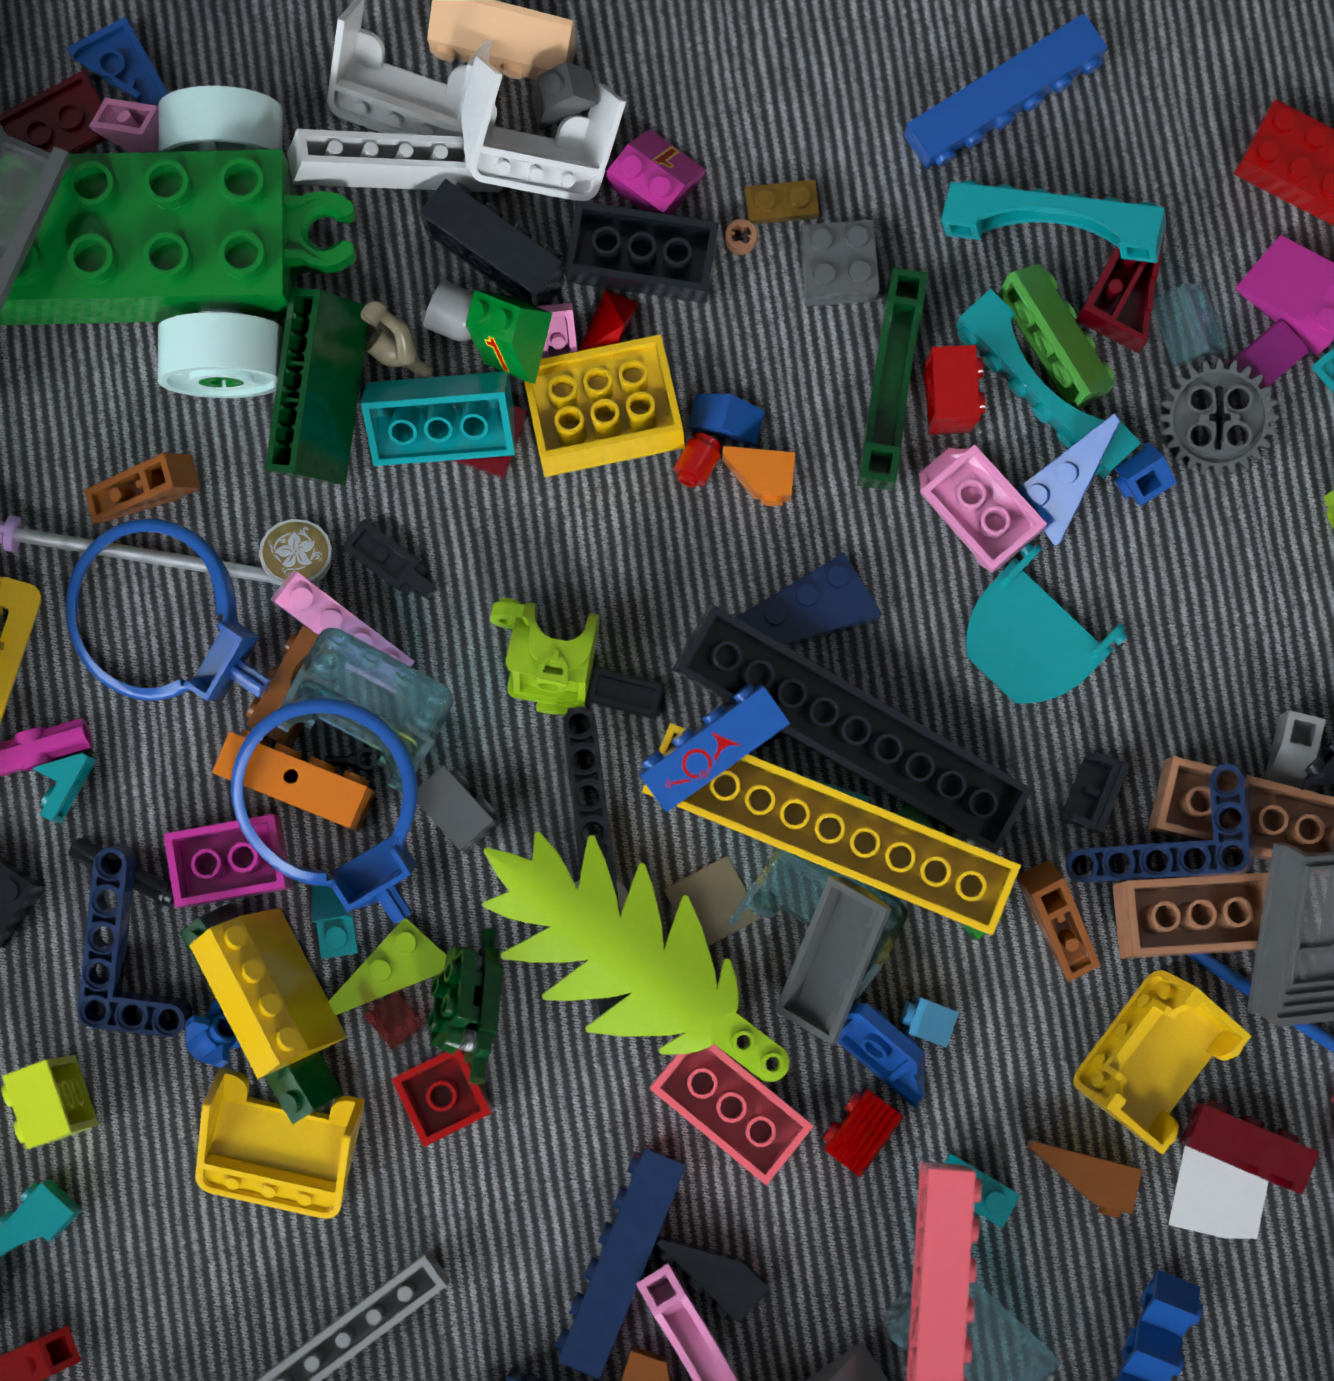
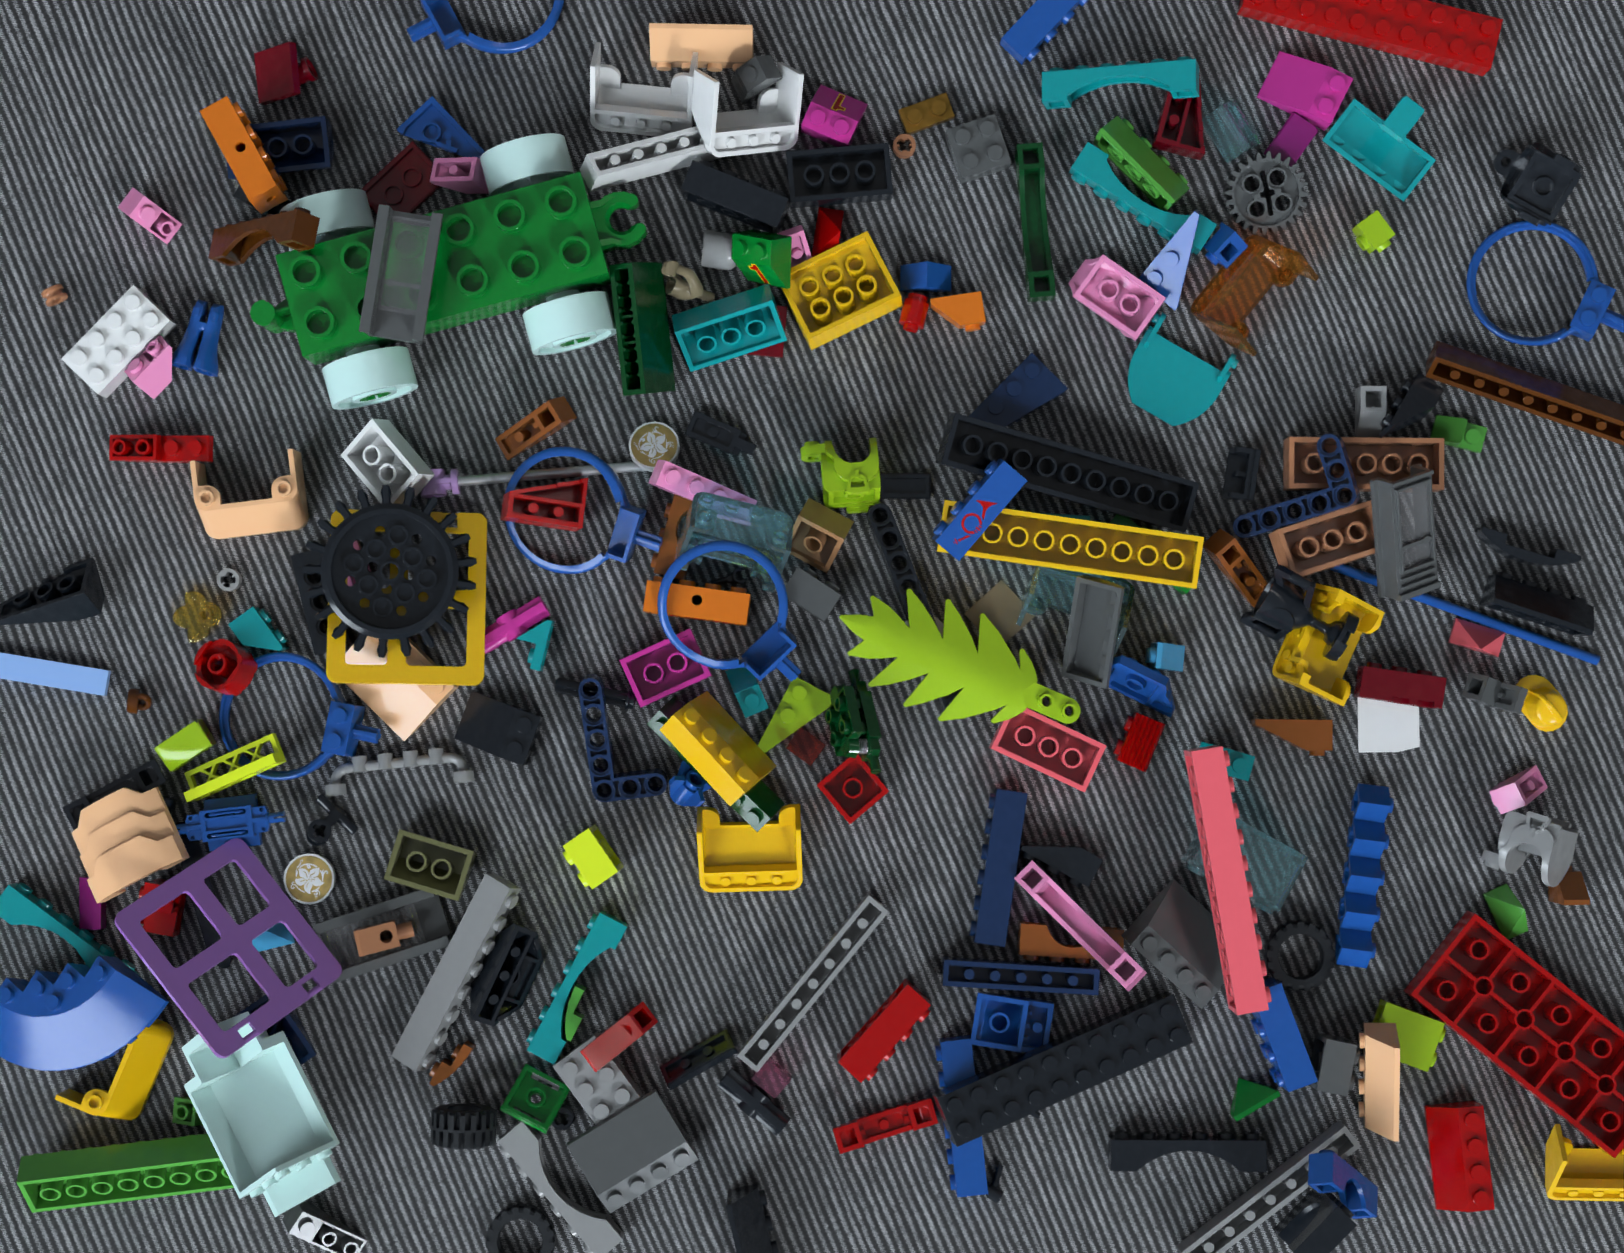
camera: 15 degrees left, 5 degrees up
(125, 596) = (548, 506): none -> red wedge
(487, 730) = (819, 535): none -> medium nougat slope
(953, 389) = (1079, 220): red brick -> none
(1115, 997) = (1288, 609): none -> black piece
(1160, 532) = (1243, 284): none -> clear orange windscreen

